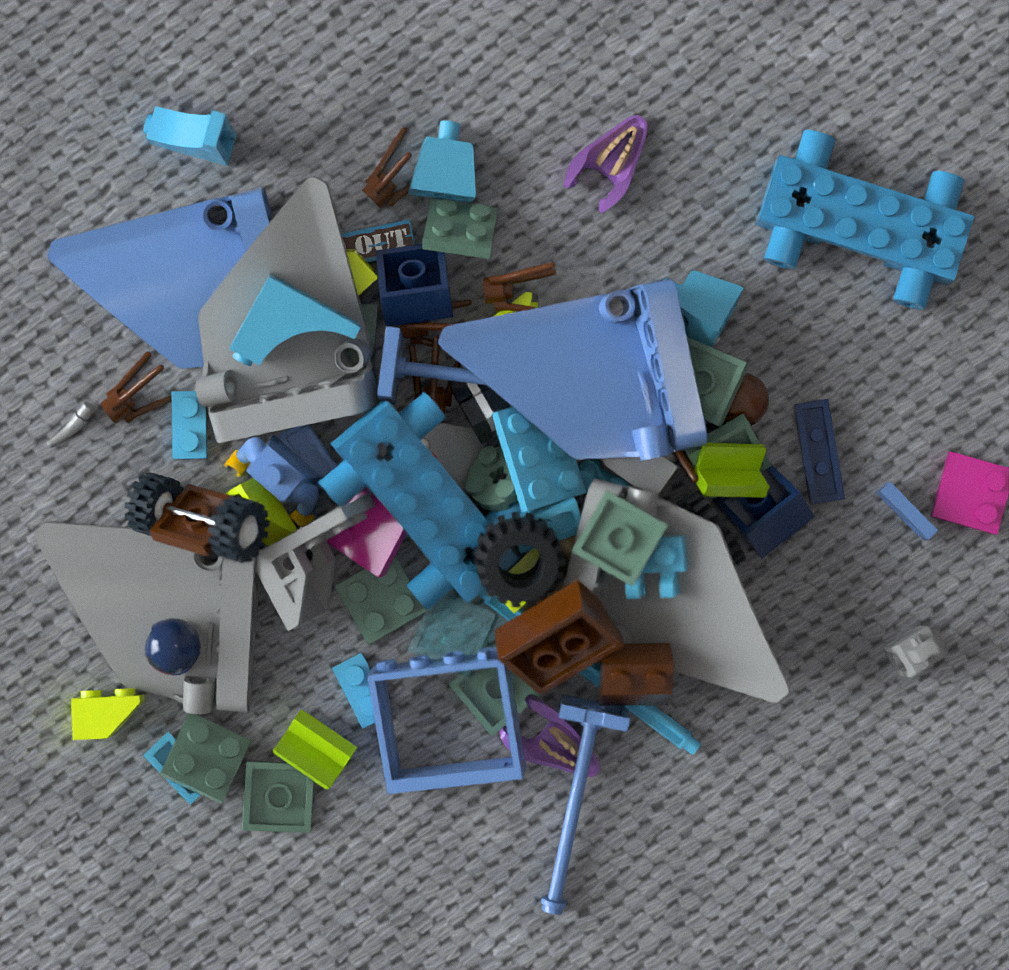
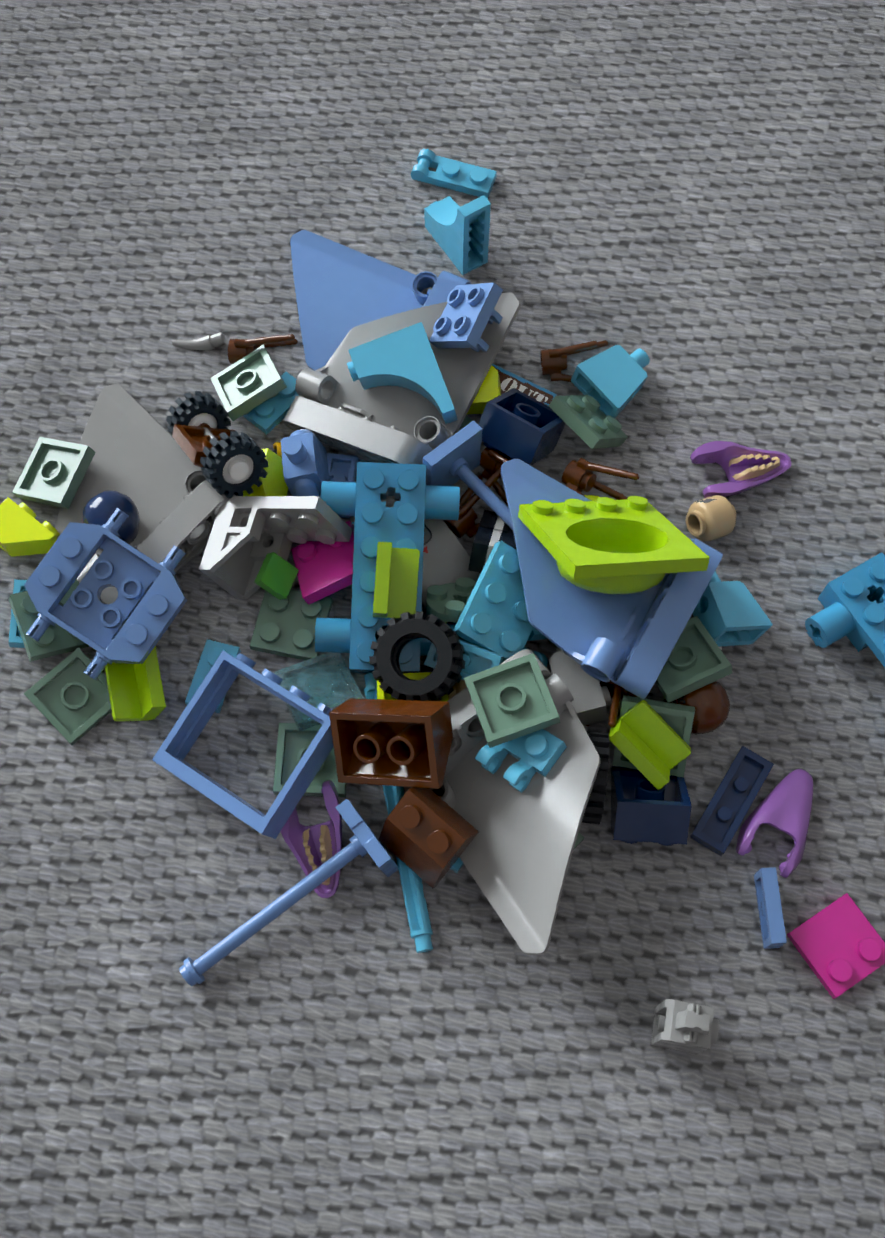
camera: 45 degrees right, 20 degrees down
(80, 645) = (54, 472): none -> plate
(129, 69) = (453, 174): none -> medium azure plate
(156, 433) = (248, 383): none -> sand green plate
(244, 736) = (117, 631): none -> medium blue piece
(300, 240) = (466, 317): none -> medium blue plate
(342, 578) = (276, 576): none -> bright green tile
(449, 515) = (395, 581): none -> lime panel
(584, 346) = (612, 543): none -> lime piece
(624, 229) = (711, 518): none -> tan head
(861, 428) = (786, 809): none -> medium lavender animal

